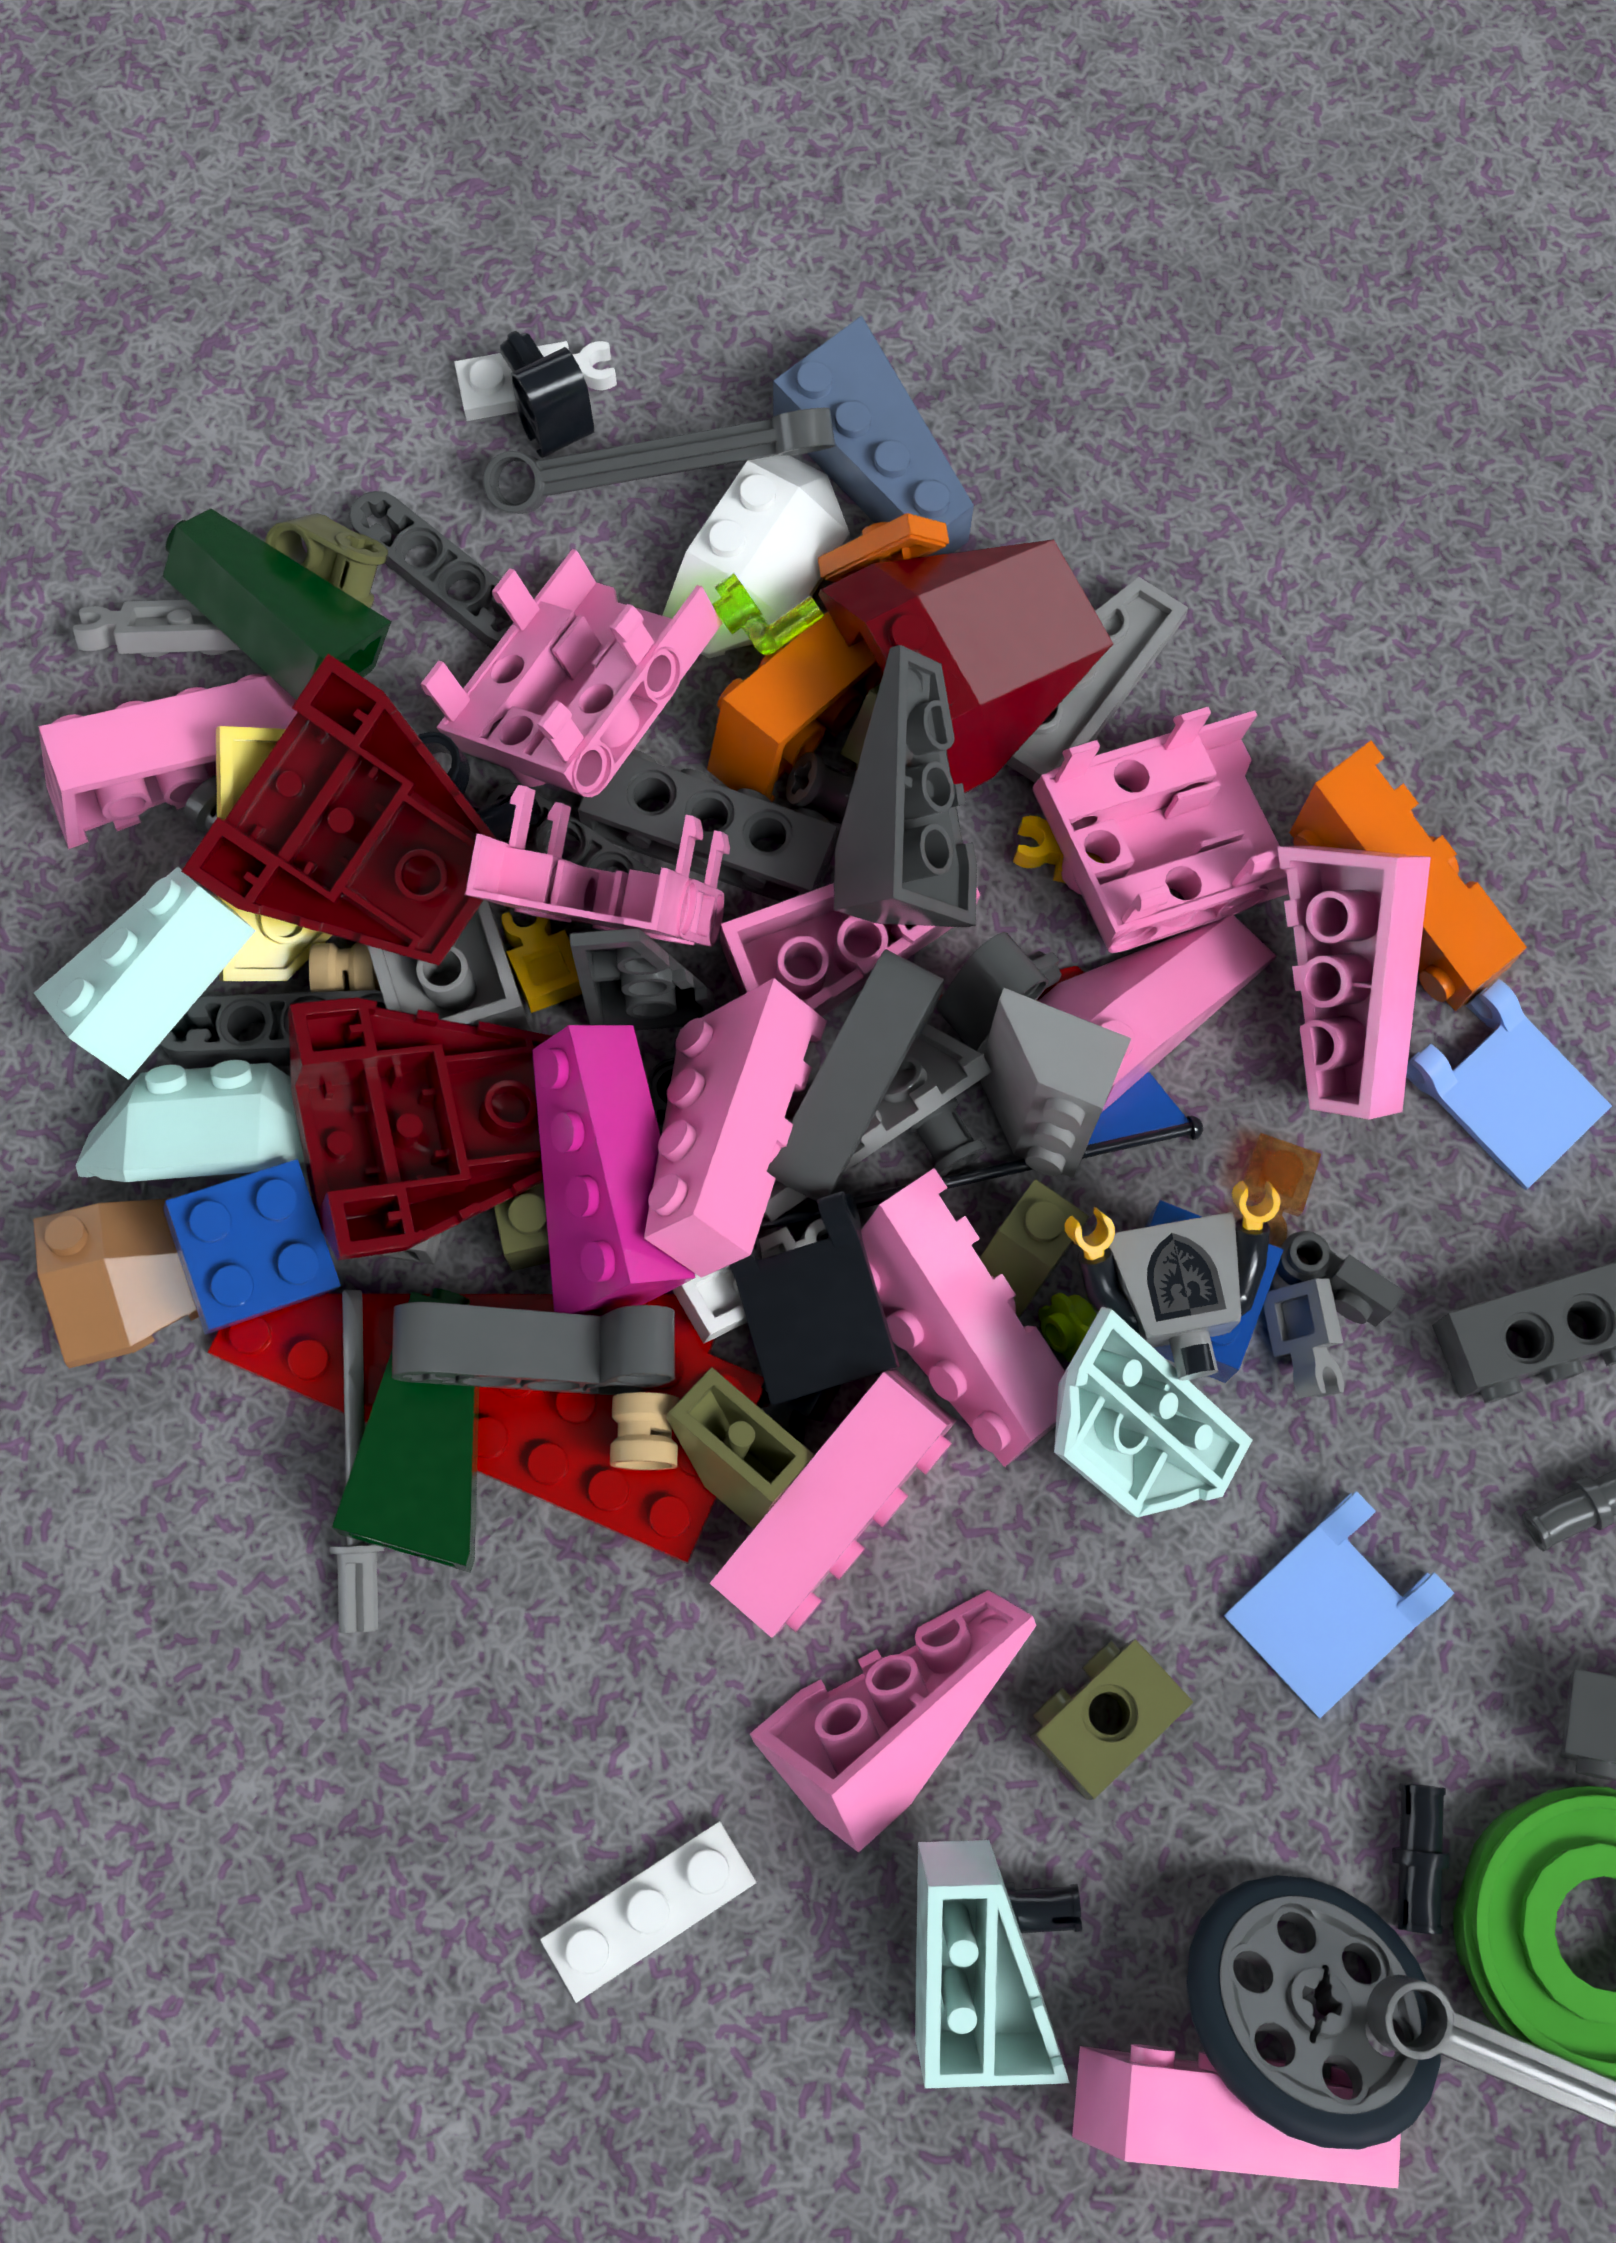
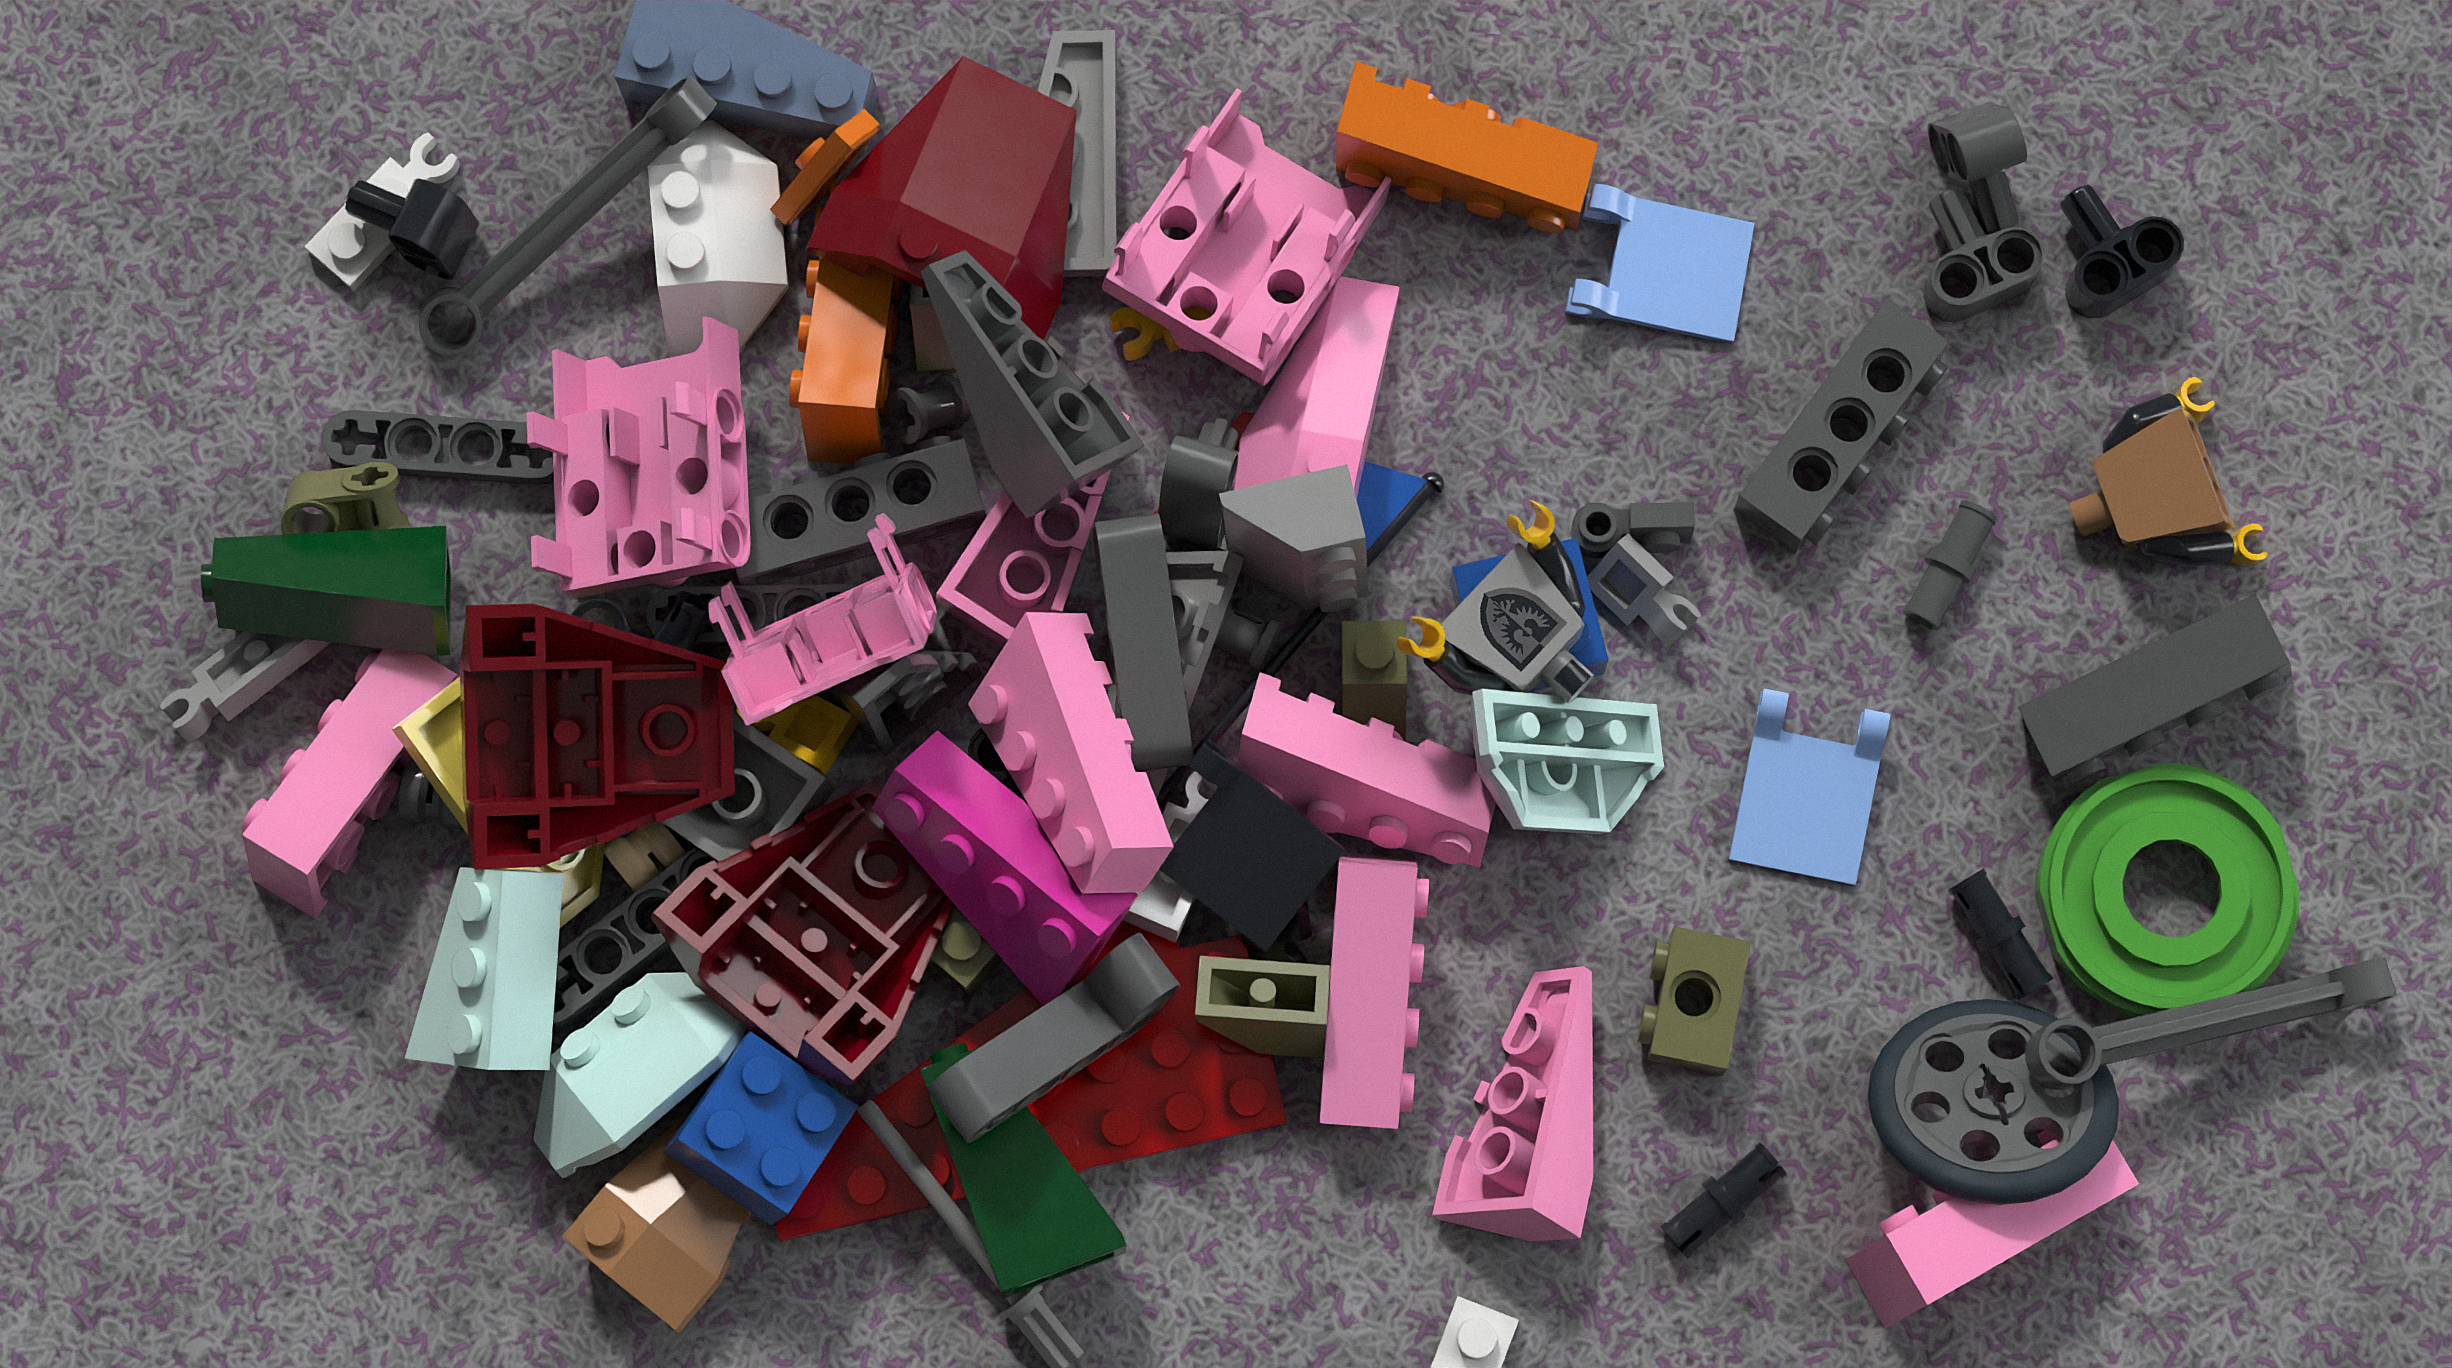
camera: 30 degrees left, 5 degrees up
(643, 1432) = (1182, 1044): tan wheel -> none
(739, 611) = (745, 308): clear neon green plate -> none
(975, 1985) = (1729, 1262): light aqua wedge -> none
(1066, 1322) = (1447, 718): lime plate -> none
(1290, 1173) = (1535, 473): clear orange plate -> none
(1357, 971) = (1476, 262): bright pink wedge -> none

